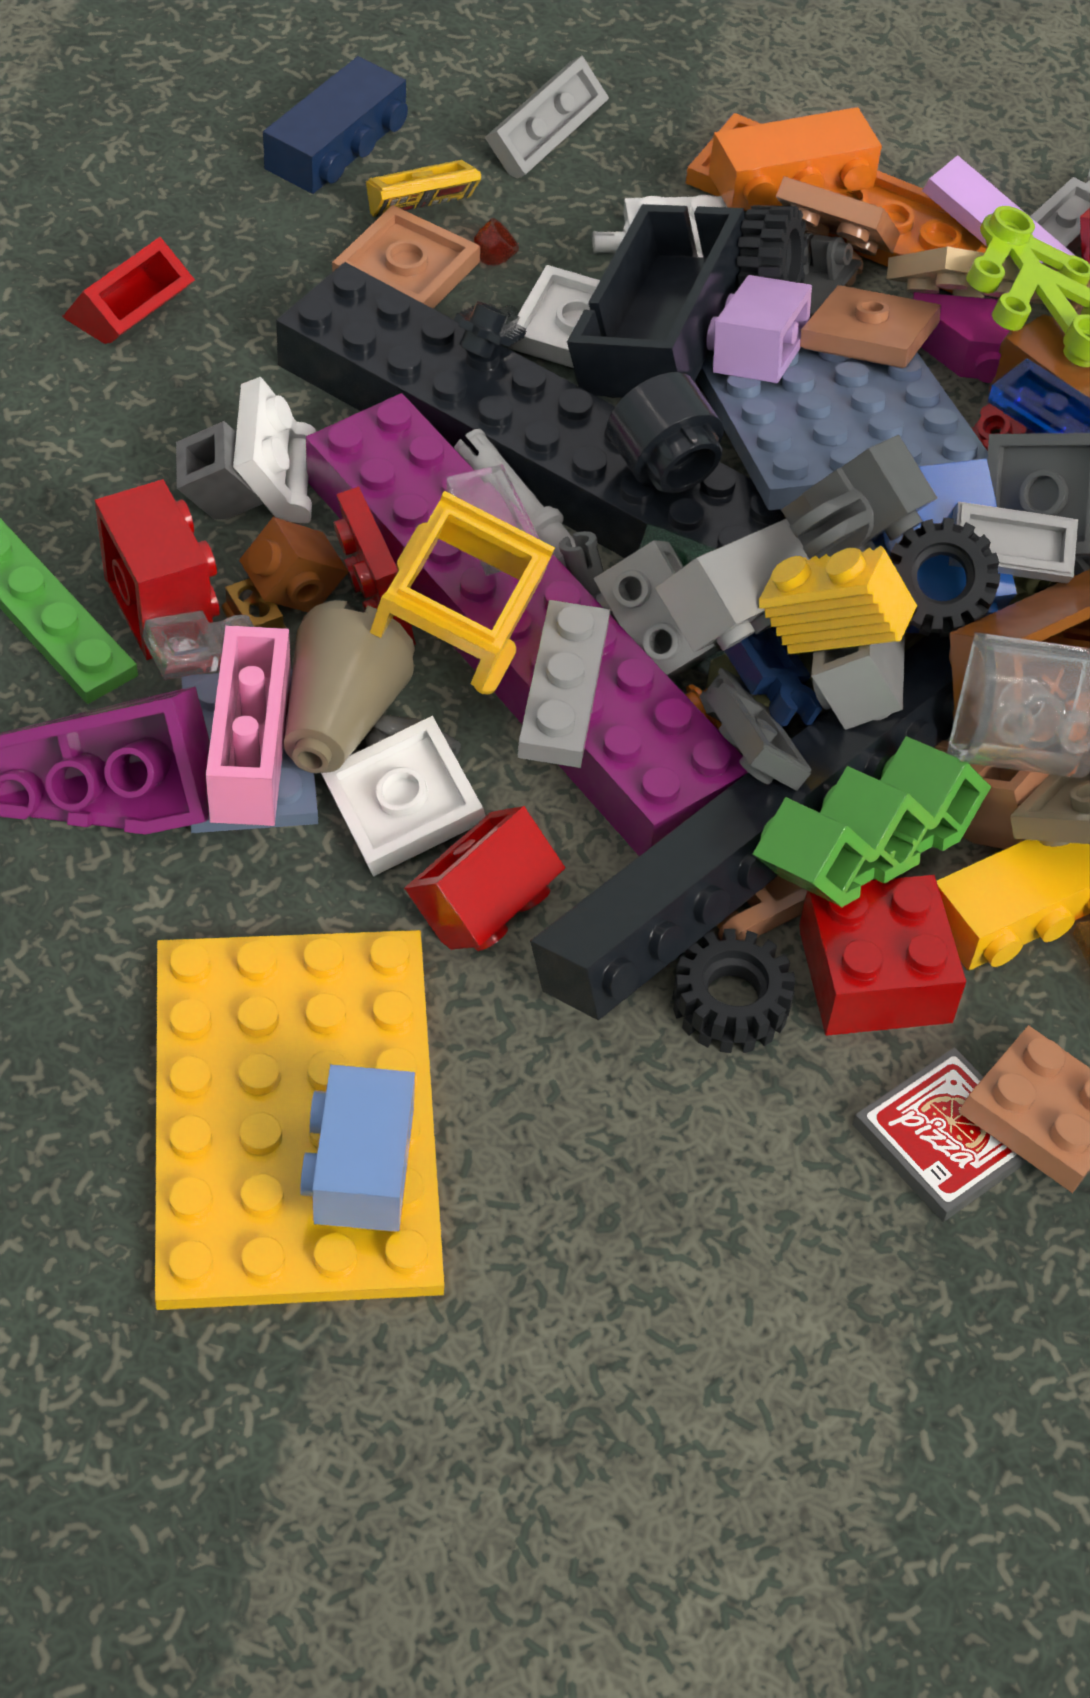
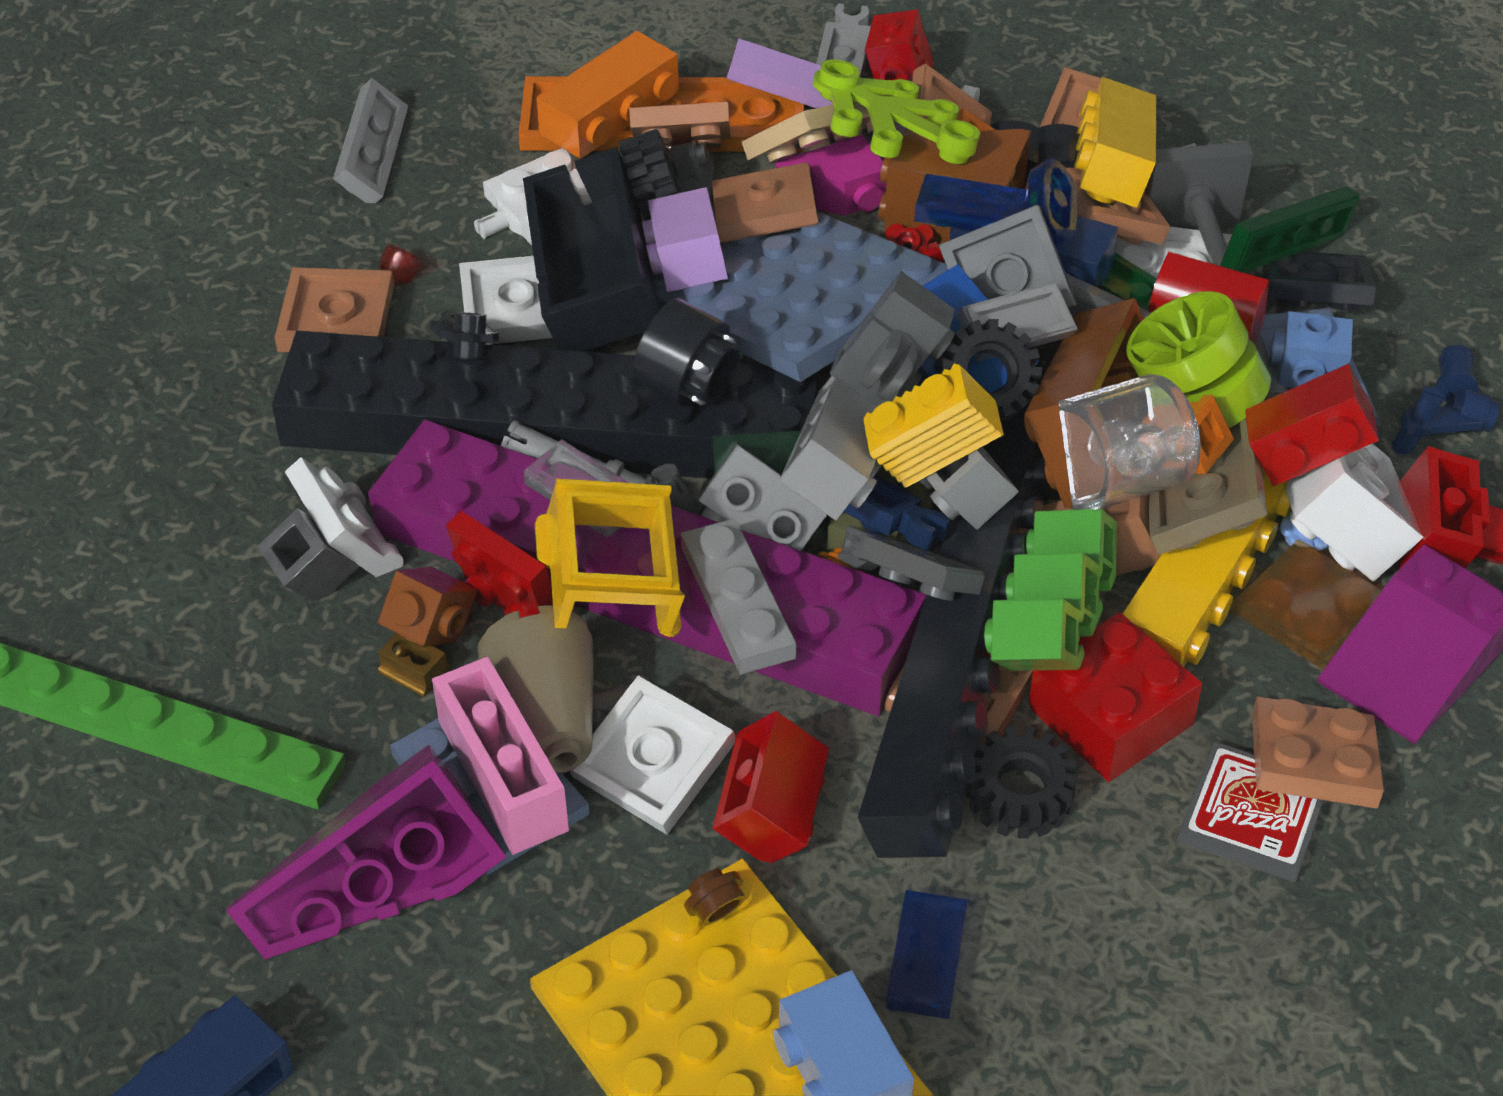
camera: 25 degrees left, 5 degrees down
(129, 293) = (111, 440): red brick -> none
(154, 557) = (315, 662): red brick -> none
(188, 642) = (388, 714): clear plate -> none
(335, 125) = (194, 221): dark blue brick -> none
(356, 947) = (714, 896): none -> reddish brown plate
(422, 186) = (306, 241): yellow slope -> none
(528, 1102) = (926, 954): none -> clear blue plate

